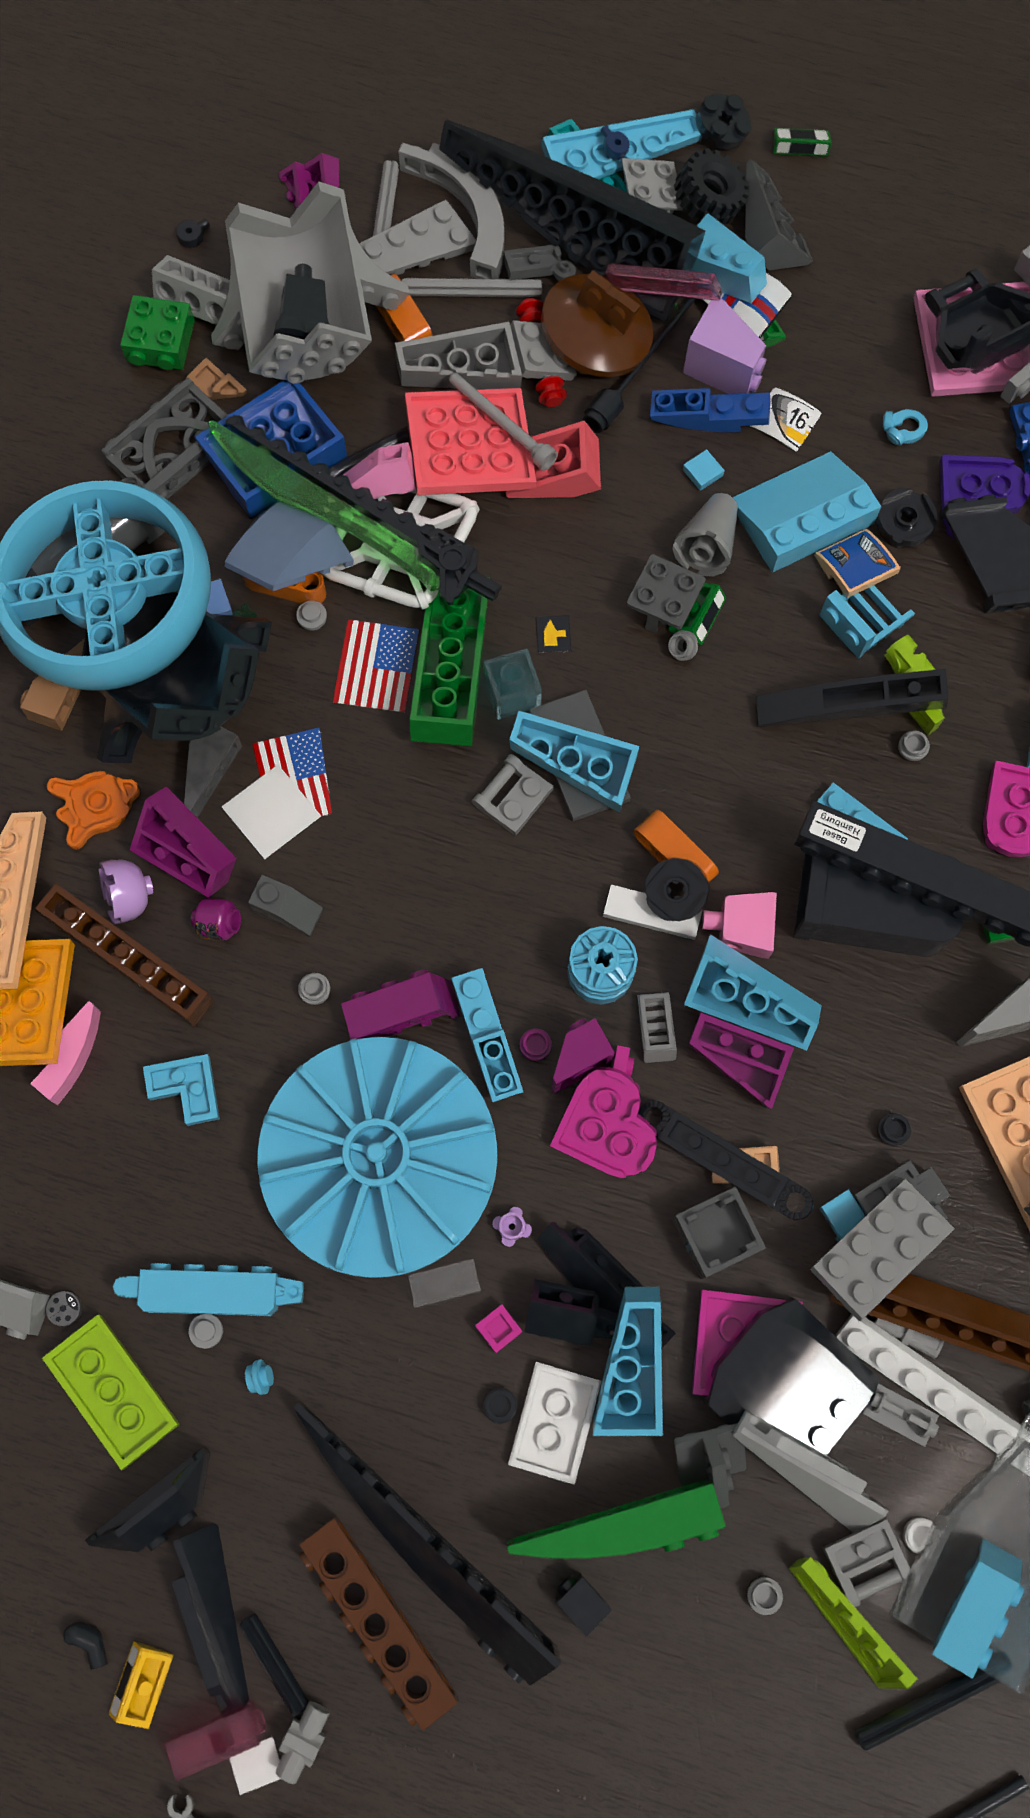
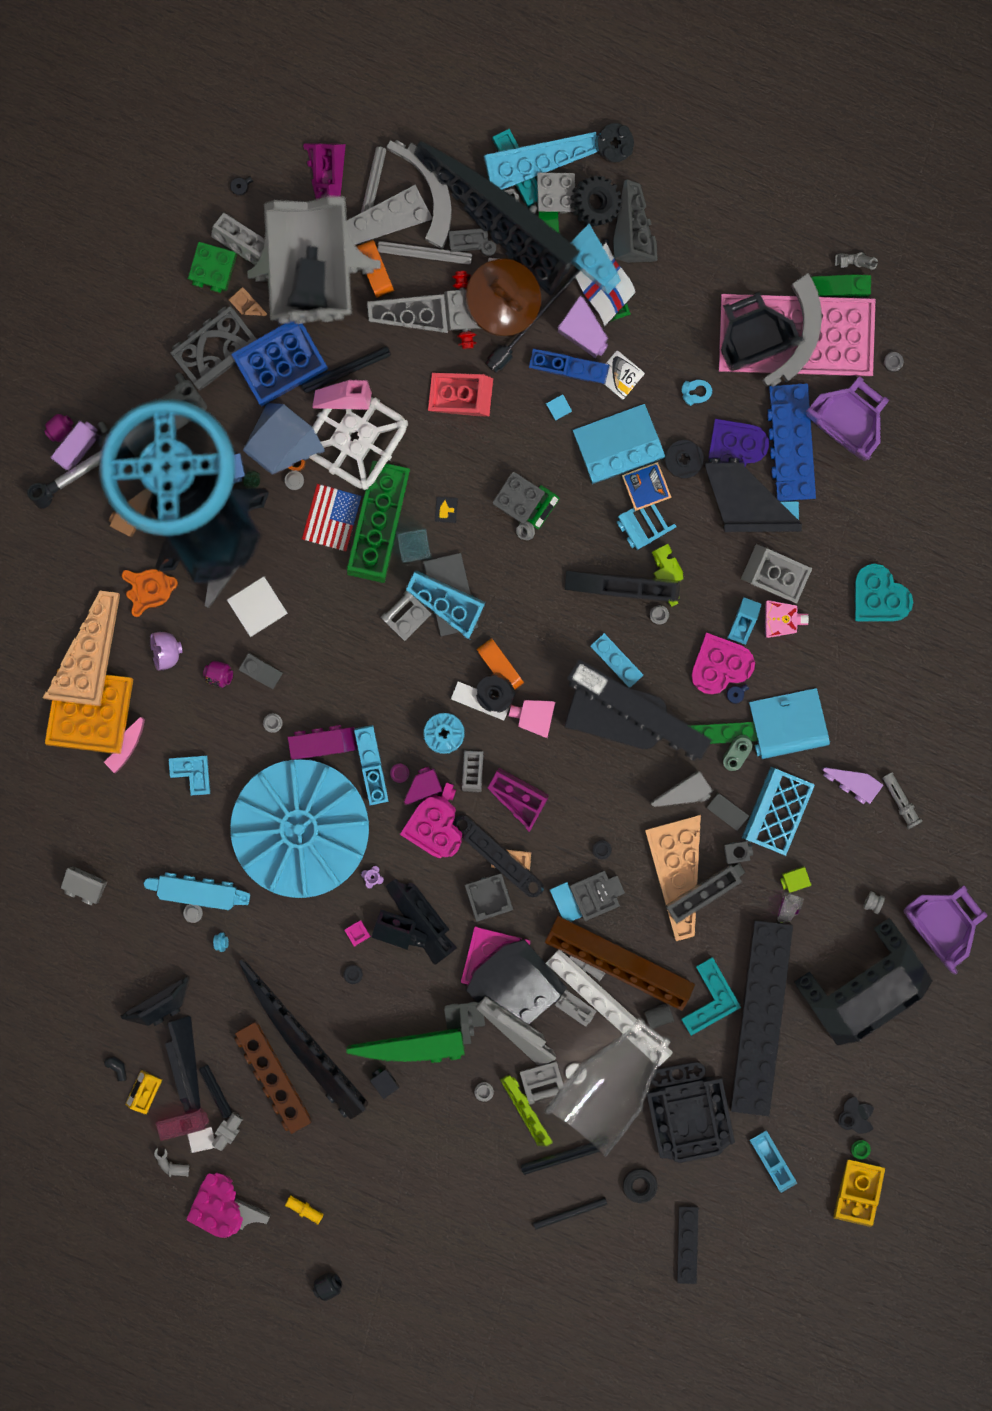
camera: 15 degrees right, 15 degrees up
(64, 1308) = (114, 890): flat silver tile -> none
(111, 1391) = (138, 939): lime plate -> none
(125, 955) = (162, 690): reddish brown brick -> none
(181, 844) = (202, 627): magenta wedge -> none
(303, 762) = (279, 575): sticker -> none
(444, 1284) = (330, 904): clear panel -> none
(445, 560) = (378, 457): piece -> none
(462, 447) = (408, 375): coral plate -> none
(542, 454) = (452, 394): light grey piece -> none
(554, 1423) = (382, 987): white tile -> none
(615, 144) = (534, 158): dark blue piece -> none
(632, 1377) = (427, 972): medium azure wedge -> none
(665, 281) = (548, 281): clear pink tile -> none
(708, 537) = (554, 458): light grey cone -> none
(751, 996) = (529, 763): medium azure wedge -> none
(801, 142) = (667, 161): slope -> none
(882, 1250) = (577, 919): light grey plate -> none
(980, 1610) = (595, 1112): medium azure wedge -> none

